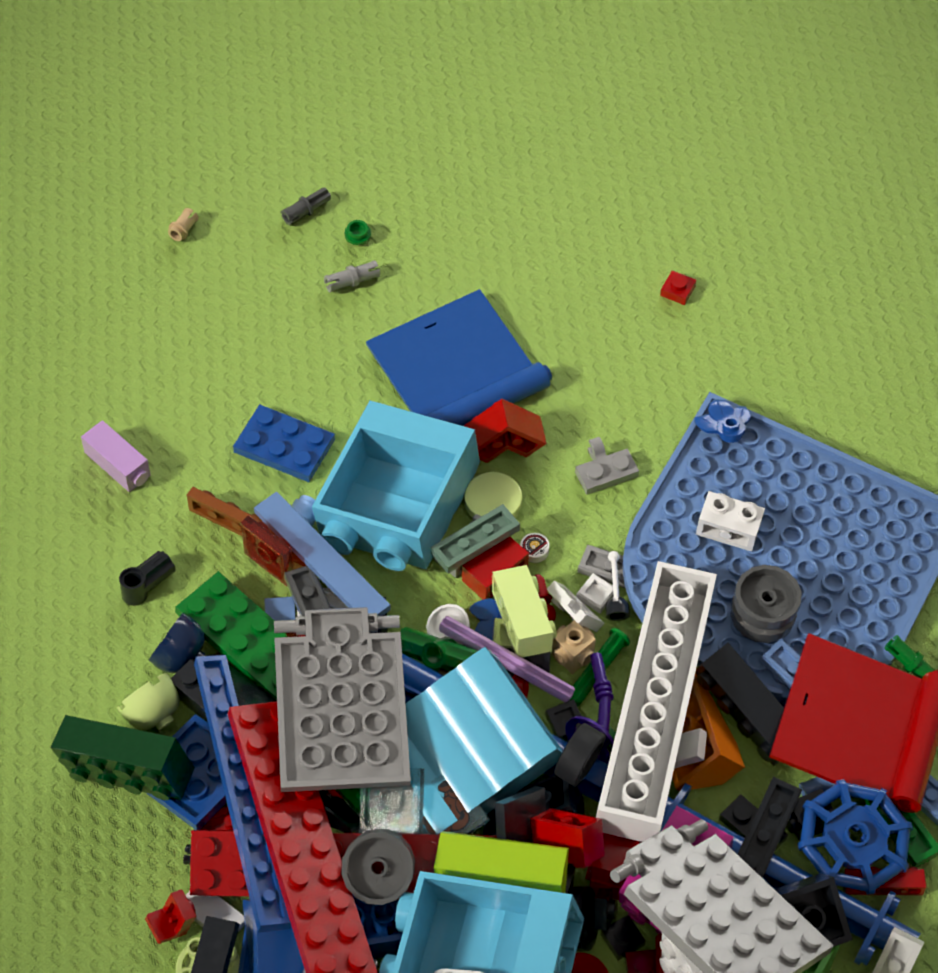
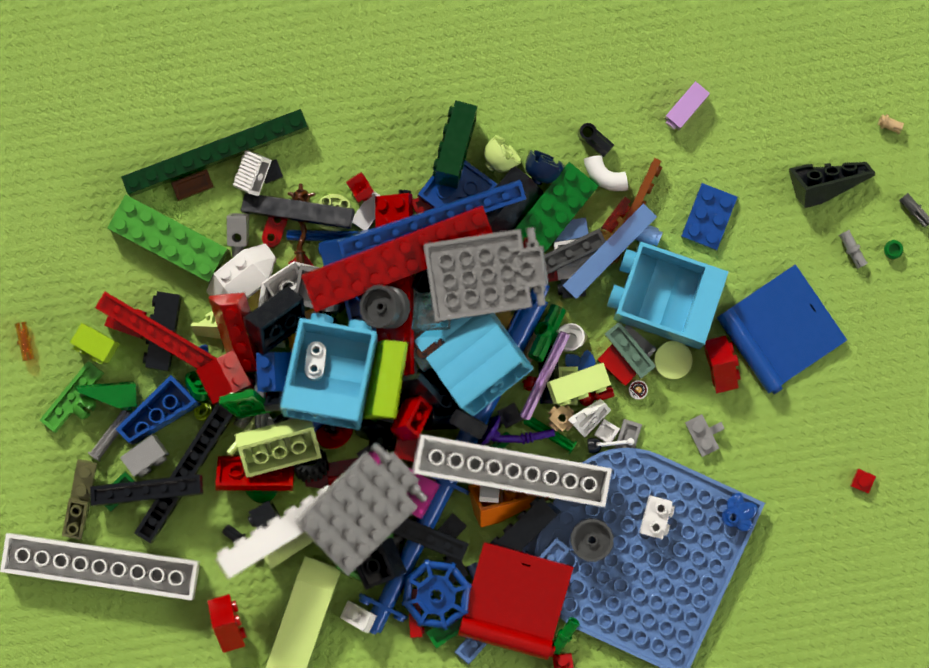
camera: 85 degrees right, 30 degrees up
(213, 558) = (603, 177): none -> white cylinder
(254, 300) = (820, 184): none -> black wedge

